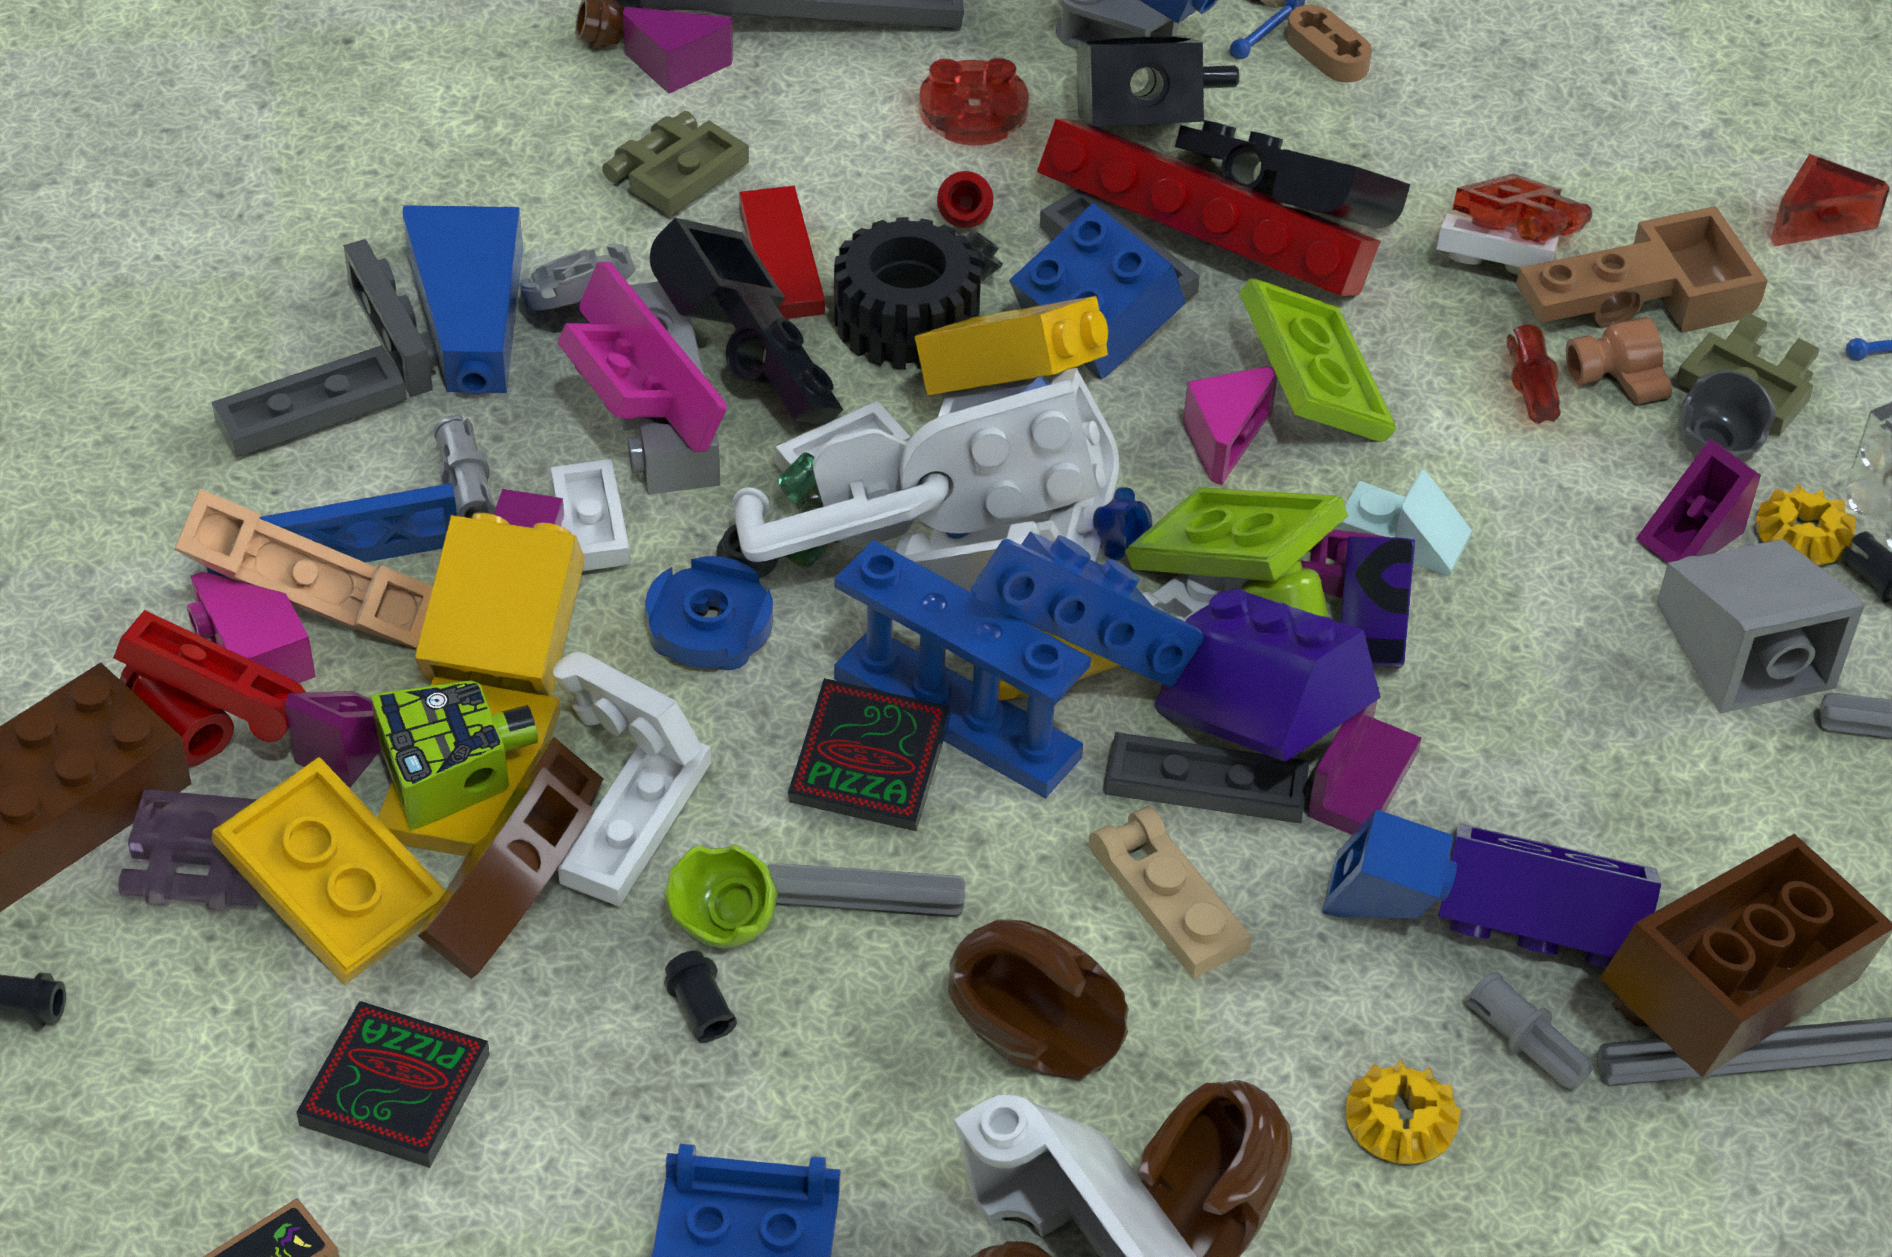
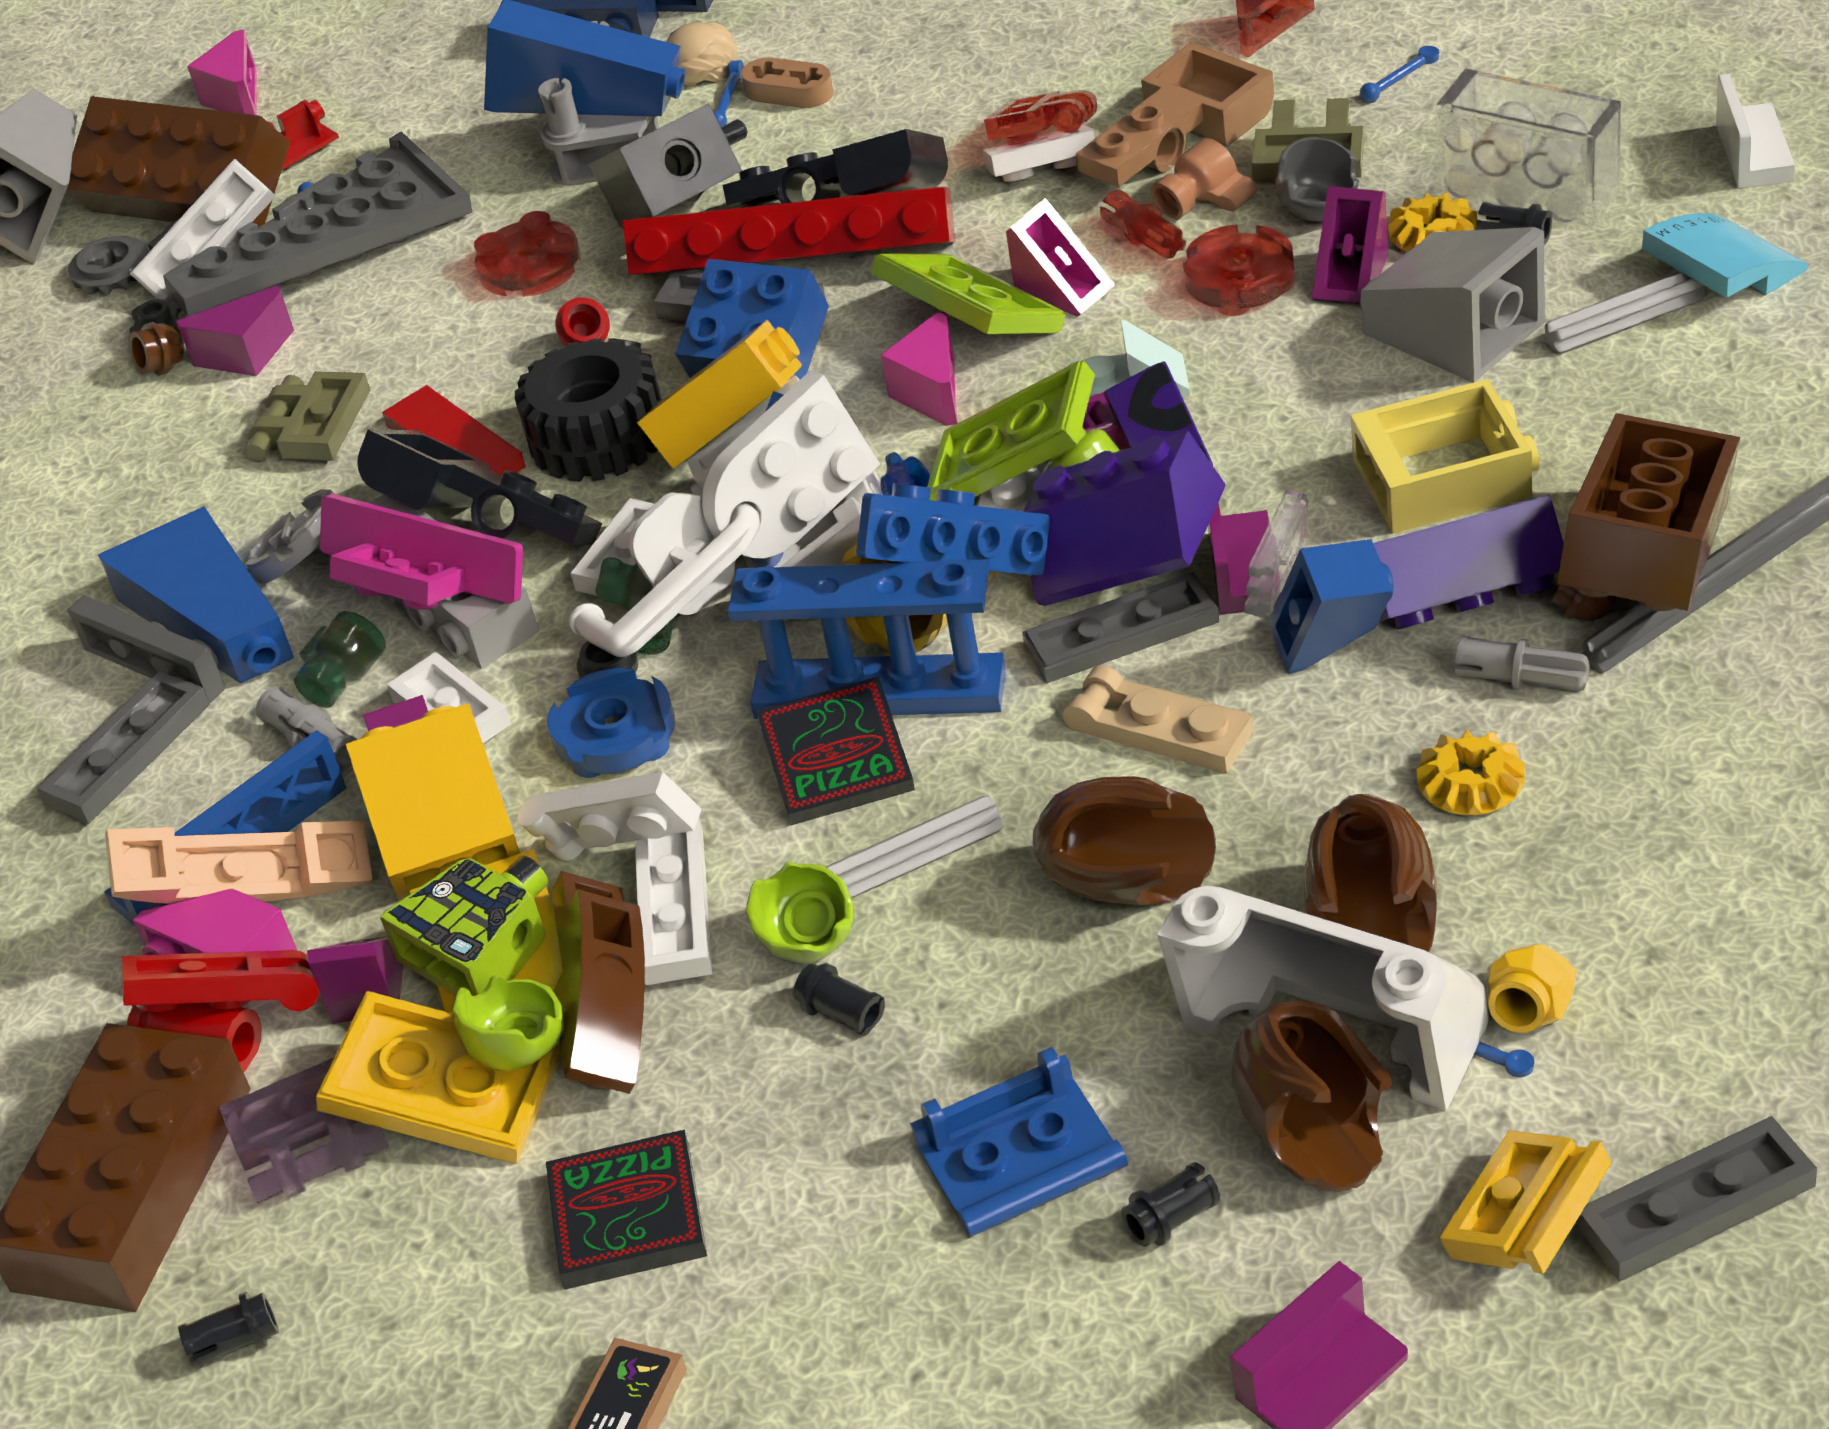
camera: 20 degrees left, 5 degrees down
(405, 856) = (508, 1022): none -> lime hair
(541, 414) = (337, 655): none -> clear green piece
(1384, 789) = (1276, 553): none -> clear tile
(1419, 371) = (1053, 262): none -> dark pink slope
(1570, 492) = (1261, 271): none -> clear red plate
(1632, 736) = (1433, 422): none -> light yellow window

